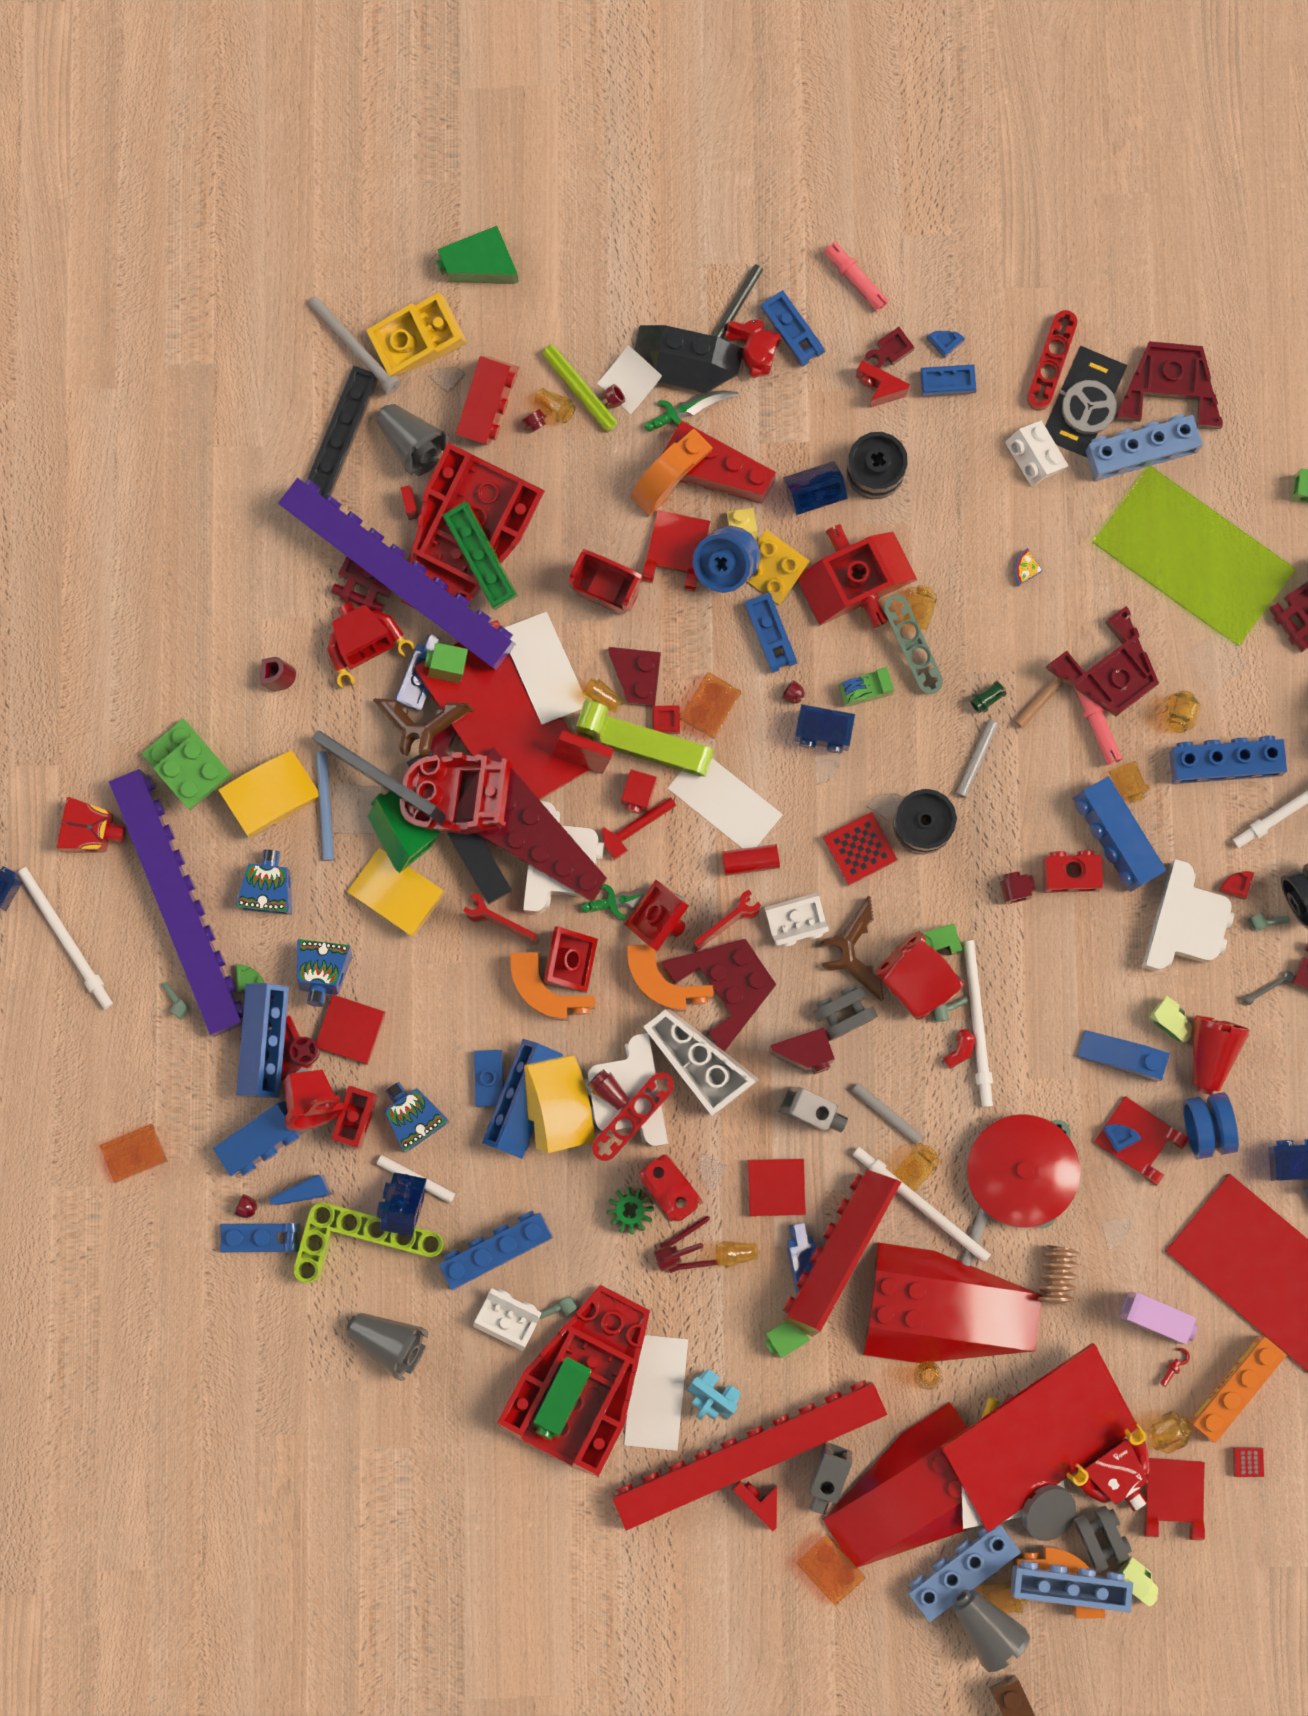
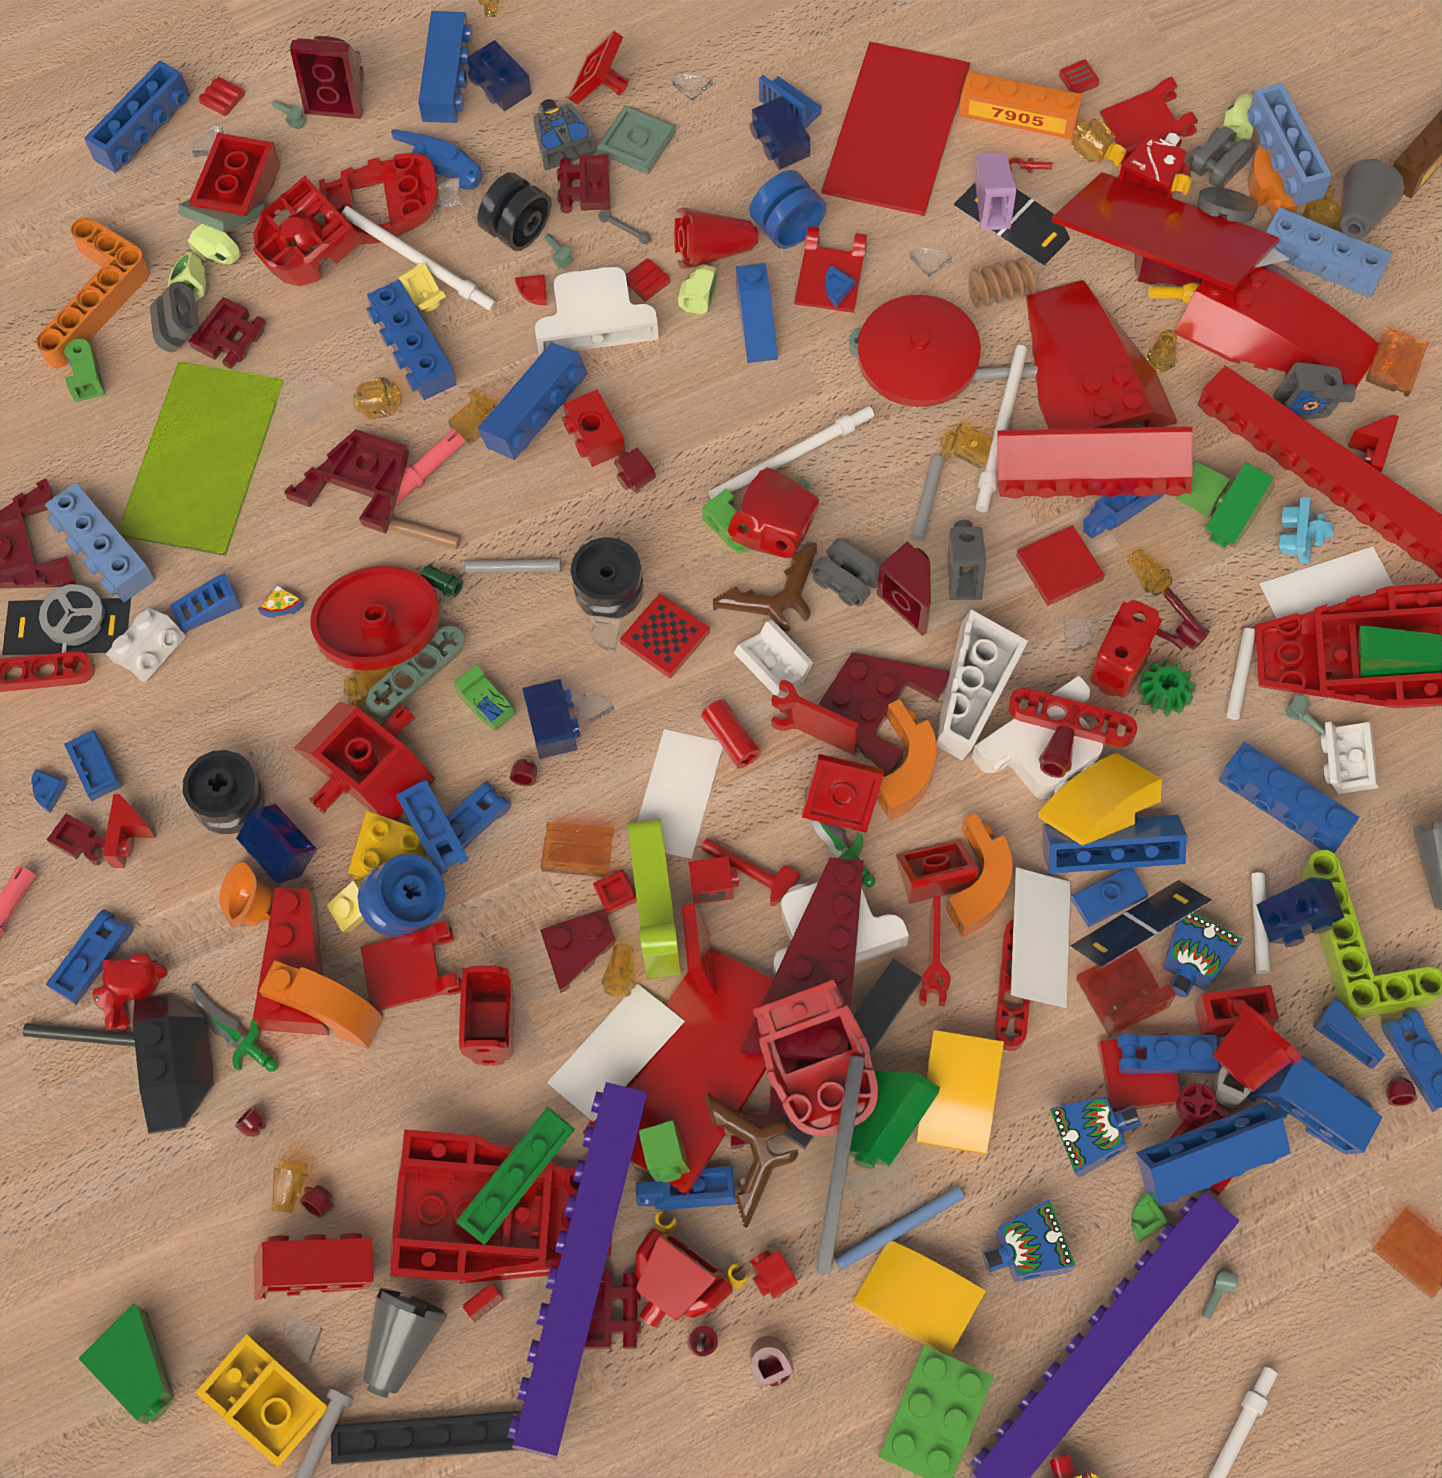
camera: 115 degrees left, 15 degrees down
(310, 641) = (709, 1343): none -> dark red hinge
(334, 703) = (773, 1274): none -> red plate
(350, 1052) = (1168, 1053): none -> blue plate
(412, 1048) = (1124, 992): none -> clear red bracket
(453, 1085) = (1140, 923): none -> black sticker
(455, 976) = (1004, 988): none -> red beam
(480, 1009) = (1040, 938): none -> white sticker
(579, 388) = (254, 1168): lime axle -> none
(617, 1278) = (1241, 674): none -> white bar
(632, 376) = (216, 1110): white sticker -> none
(756, 1357) = (1240, 506): none -> green slope
(773, 603) = (431, 826): none -> blue plate
(782, 450) = (245, 897): none -> orange piece
(964, 1049) = (826, 453): red arm -> none
(972, 630) = (375, 618): none -> red dish
(1051, 531) = (208, 590): none -> blue slope
(1117, 1338) = (1030, 226): none -> black sticker
(1204, 982) = (647, 279): none -> red piece
(1274, 789) = (421, 287): none -> light yellow bracket

